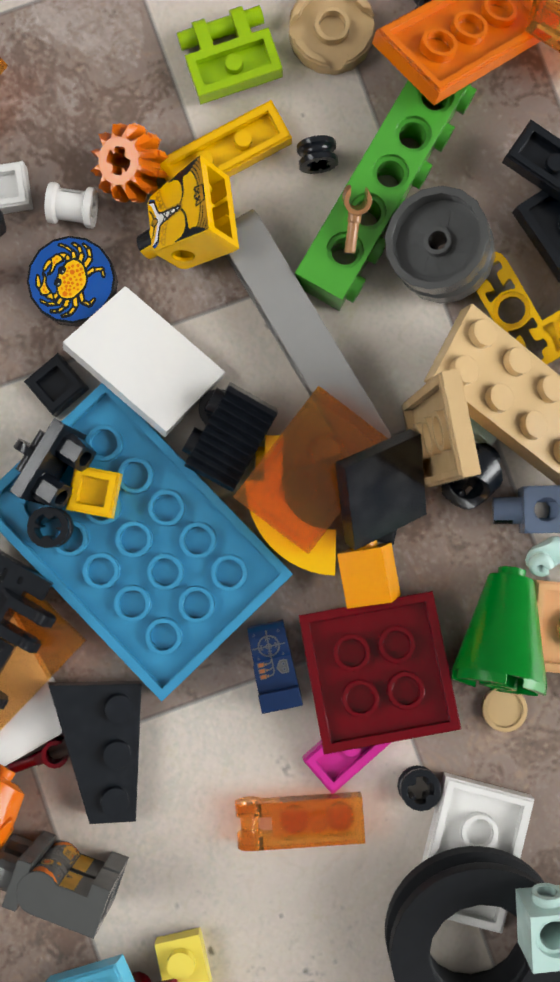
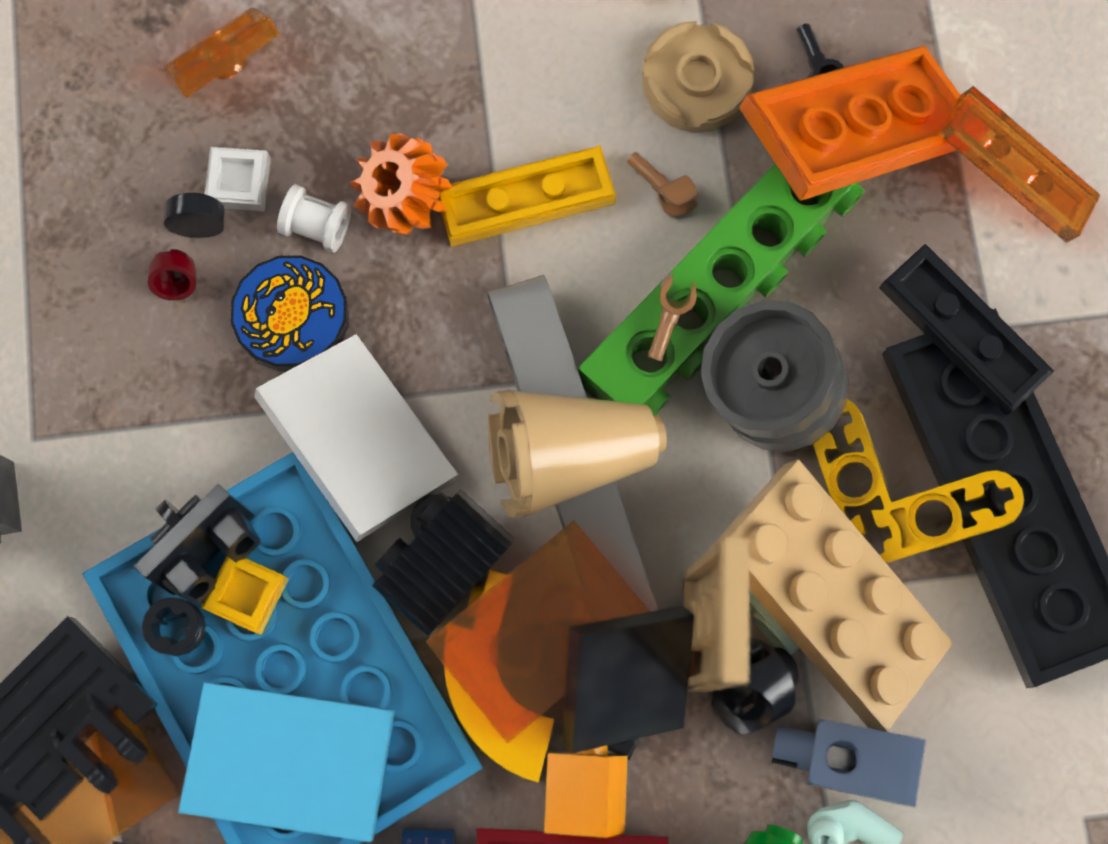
camera: 10 degrees right, 10 degrees down
(56, 385) = (233, 441): black tile -> none
(155, 601) = (287, 762): none -> medium azure tile
(191, 217) = (462, 269): yellow torso -> none
(234, 64) = (561, 92): lime plate -> none
(301, 332) = (567, 446): none -> tan cone
(317, 154) = (643, 225): black bush -> none
(335, 126) = (675, 196): none -> medium nougat hand

